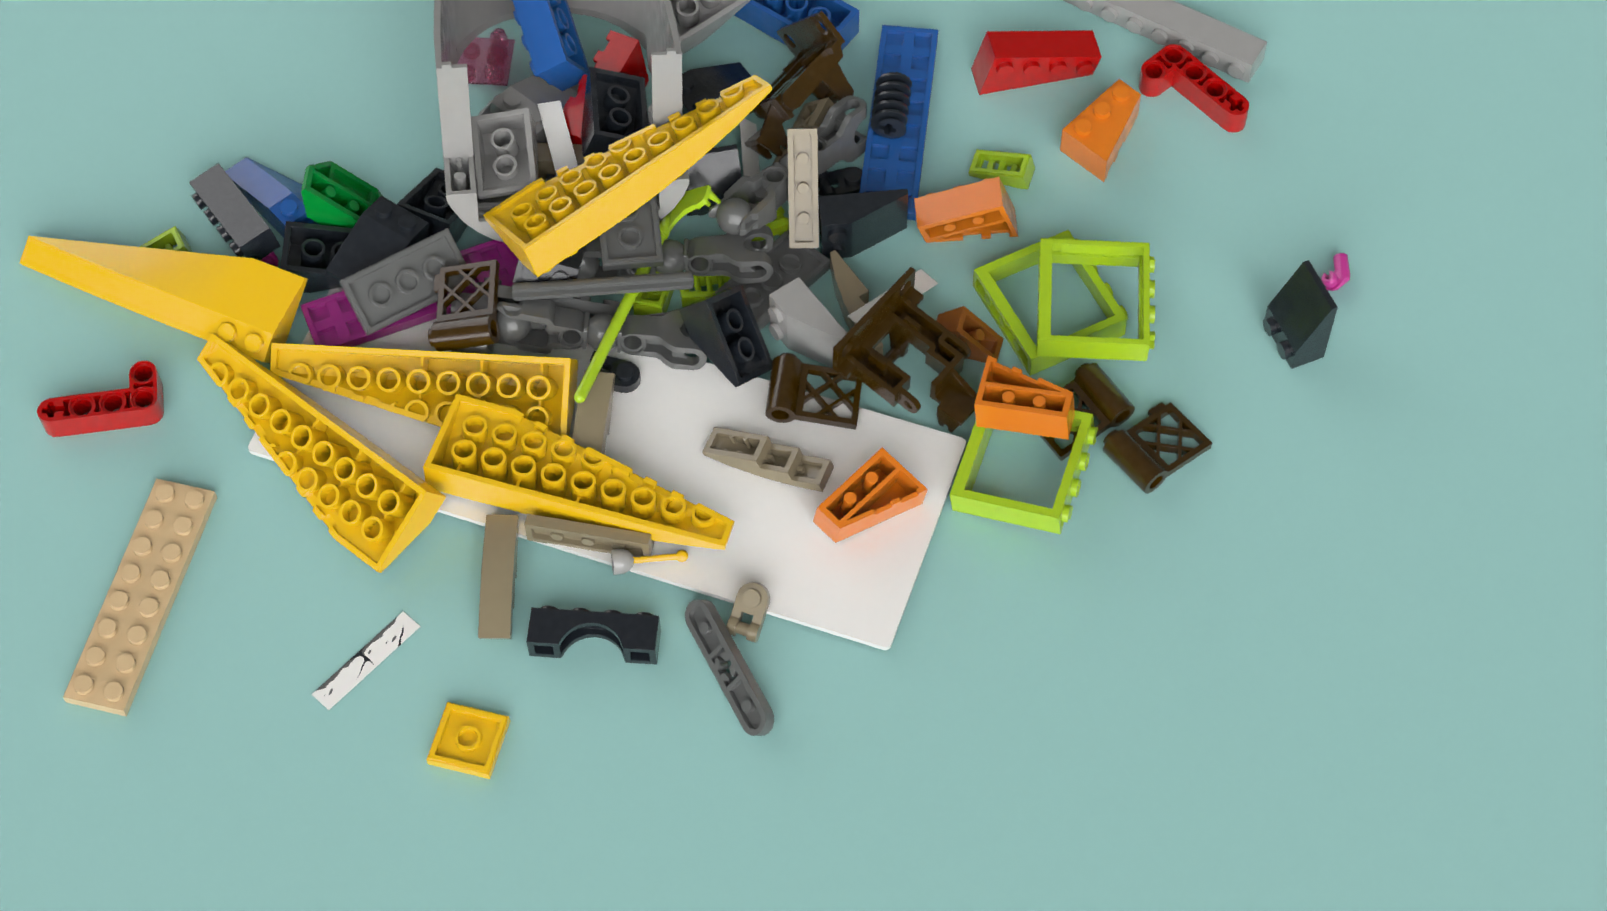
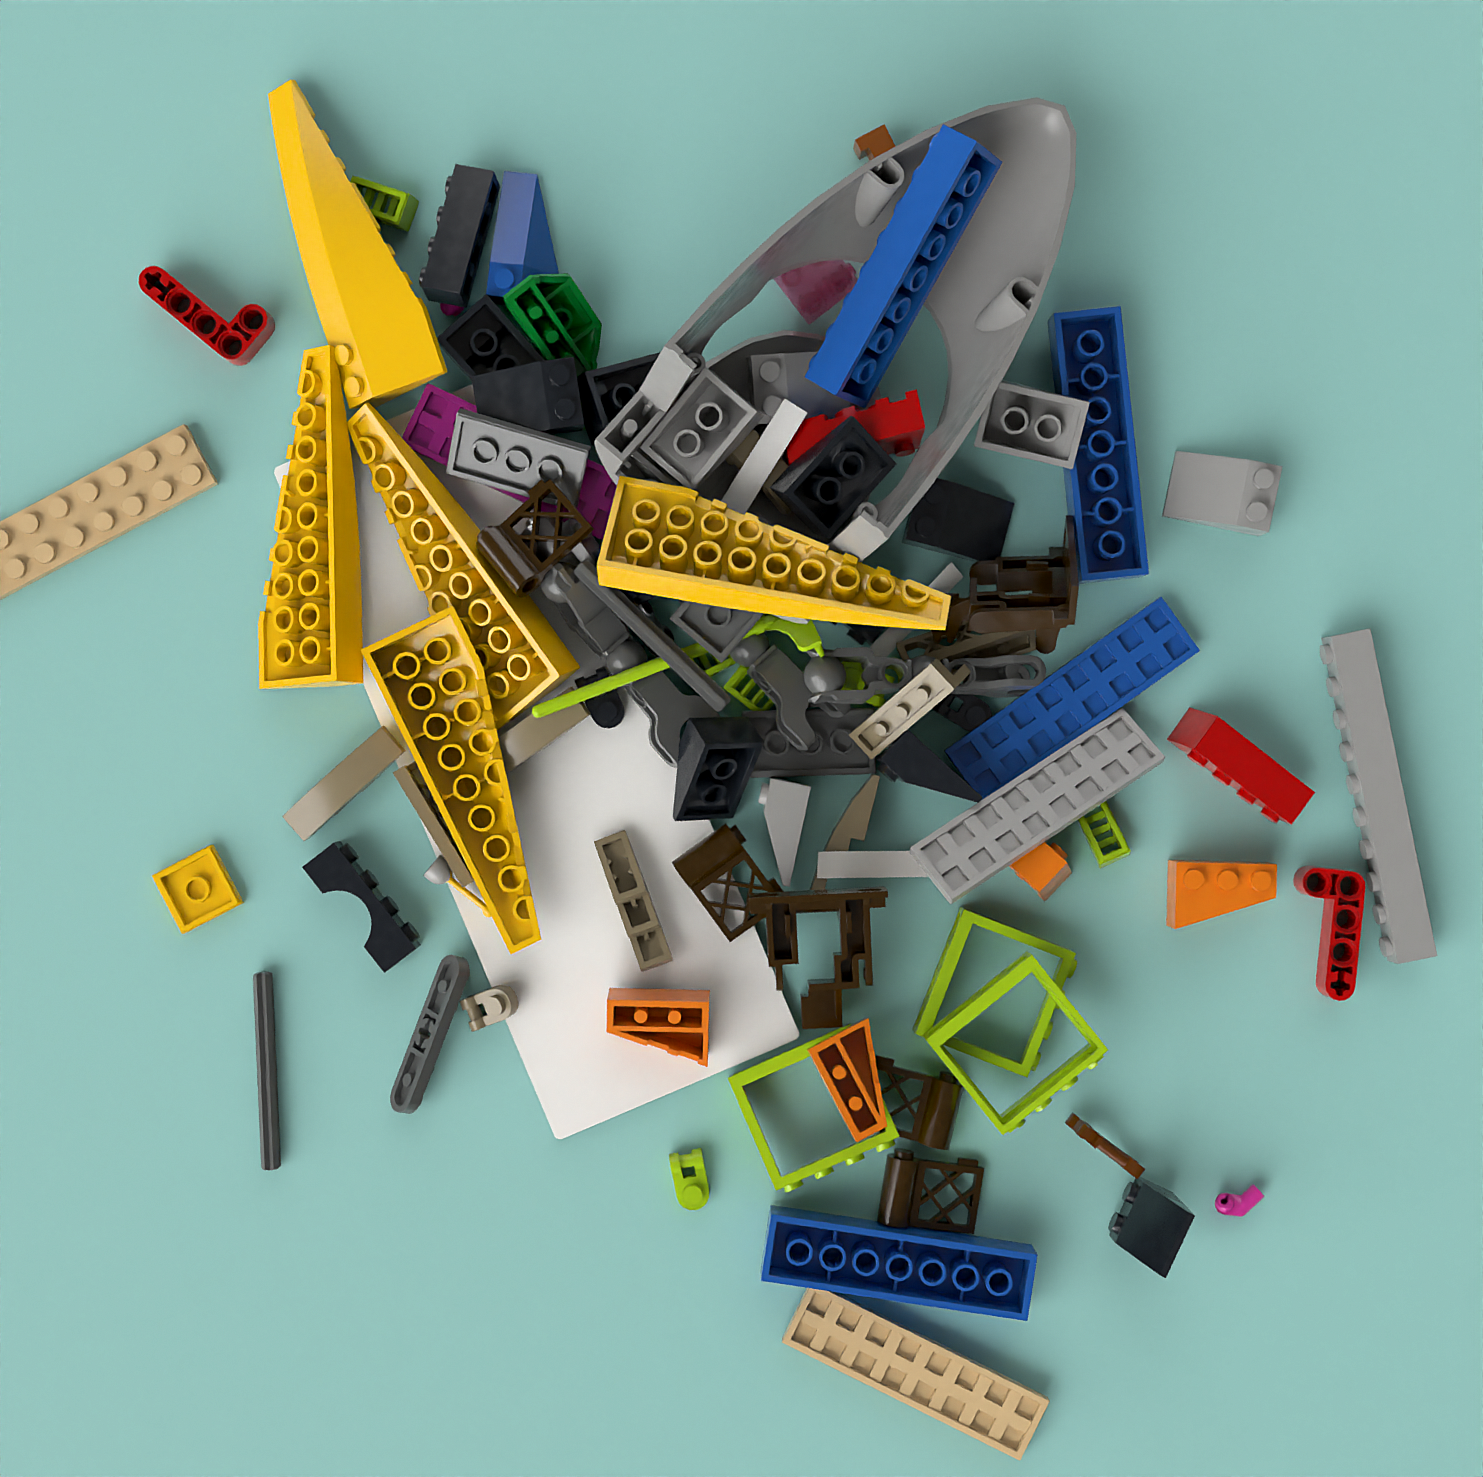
camera: 50 degrees right, 30 degrees up
(365, 660) = (192, 744): white sticker -> none
(645, 803) = (266, 1070): none -> dark grey axle
(891, 105) = (1070, 692): black piece -> none
(944, 172) = (1036, 805): none -> light grey plate
(973, 331) = (898, 954): dark orange slope -> none
(1011, 594) = (692, 1189): none -> lime plate
(1185, 496) = (898, 1263): none -> blue brick
(1207, 314) = (1097, 1141): none -> reddish brown bar
(1278, 552) = (916, 1370): none -> tan plate

